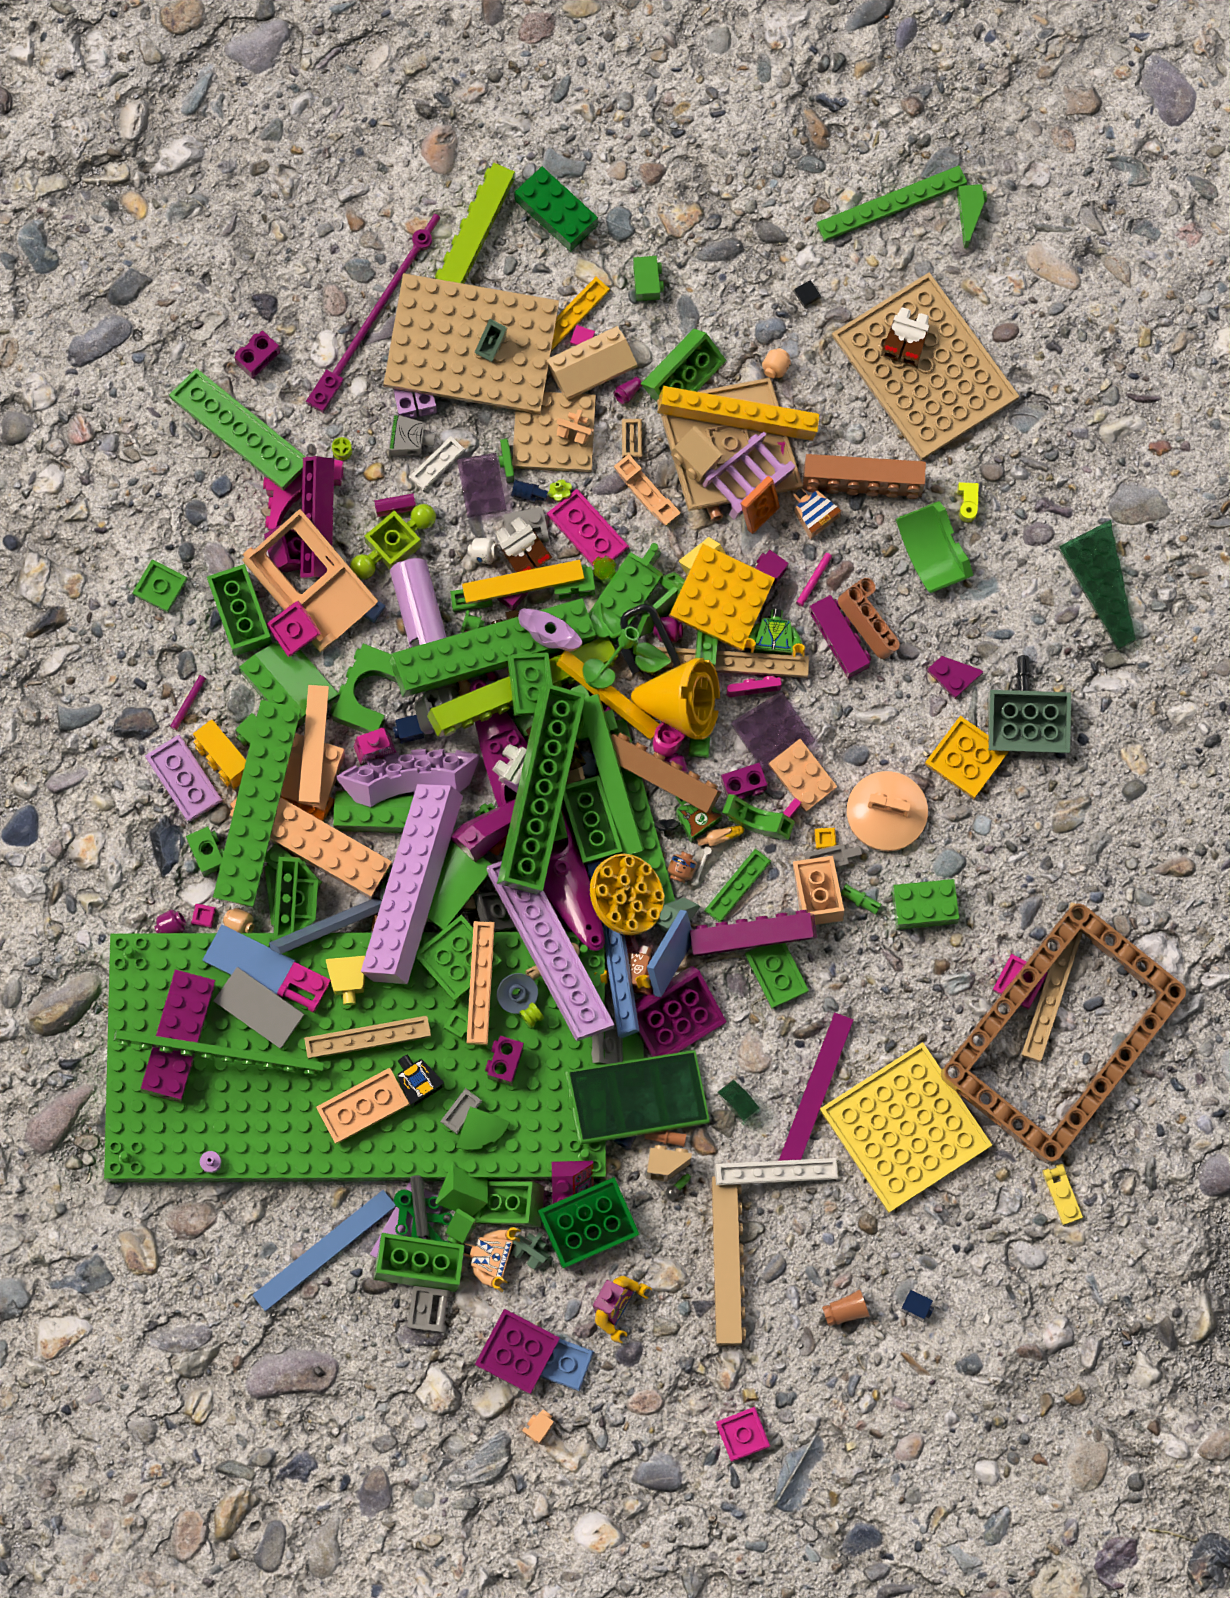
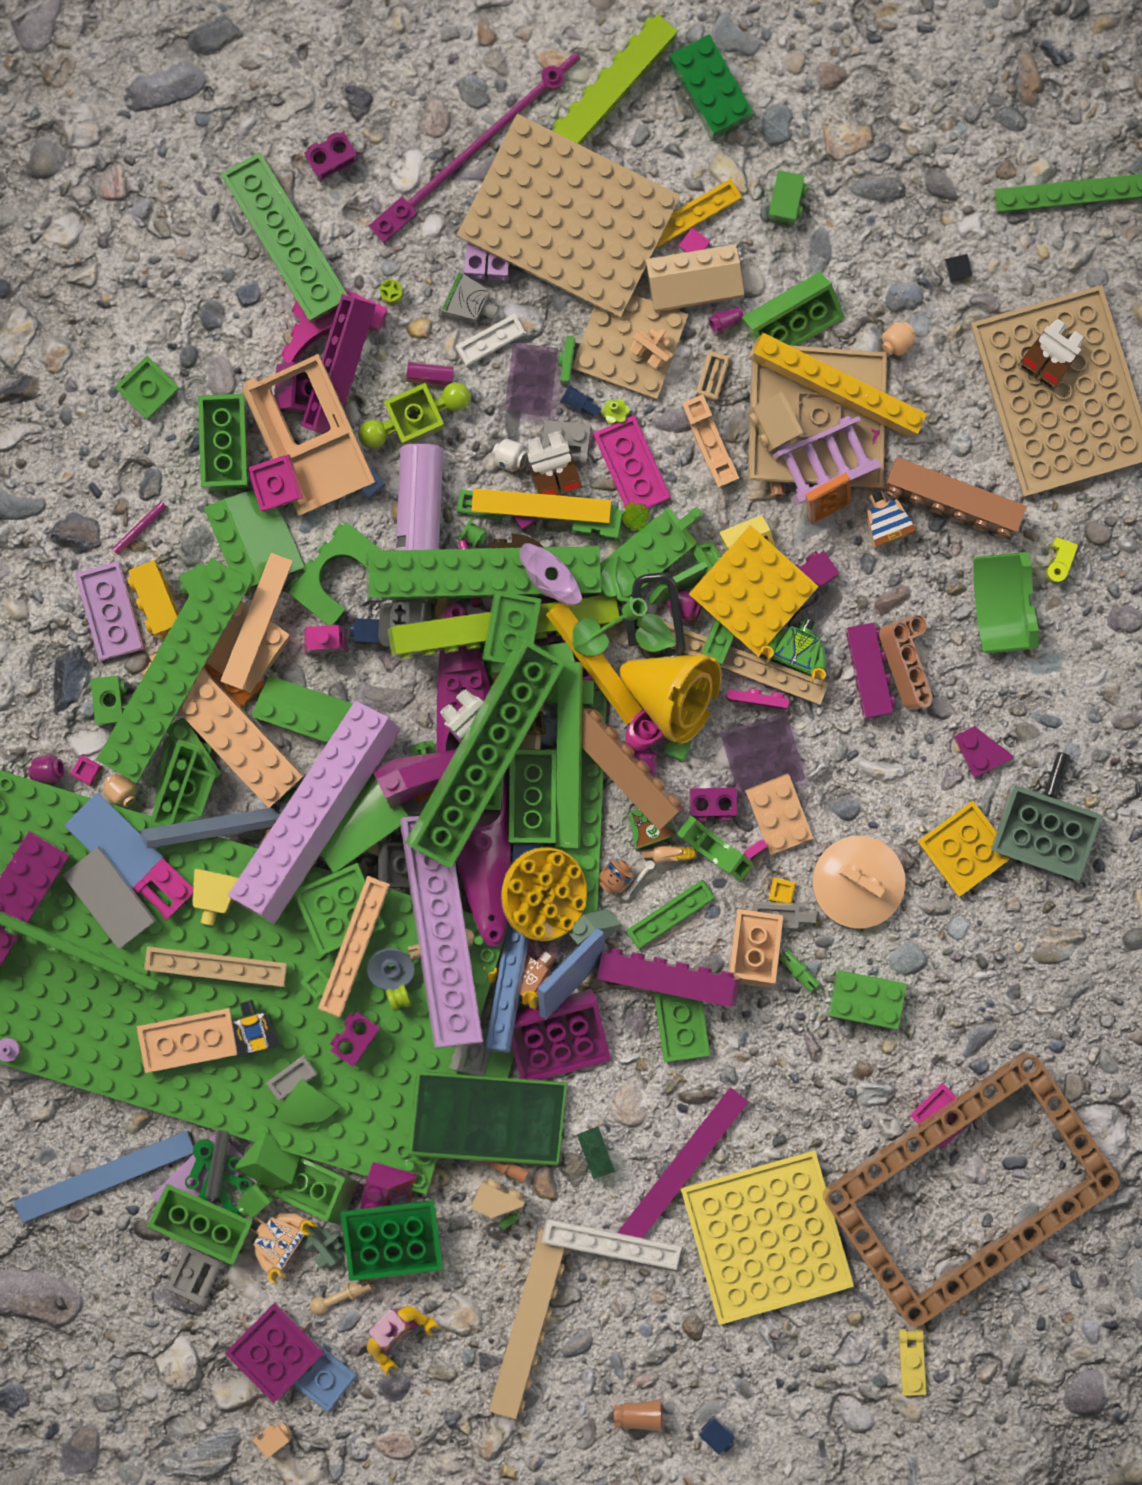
camera: 20 degrees right, 10 degrees up
(402, 773) = (351, 679): lavender brick -> none
(491, 340) = (589, 221): sand green slope -> none
(543, 1303) = (320, 1305): none -> tan pin
(667, 826) = (614, 825): black plant -> none
(814, 579) = (862, 596): dark pink bar -> none
(1050, 999) = (969, 1145): tan plate -> none

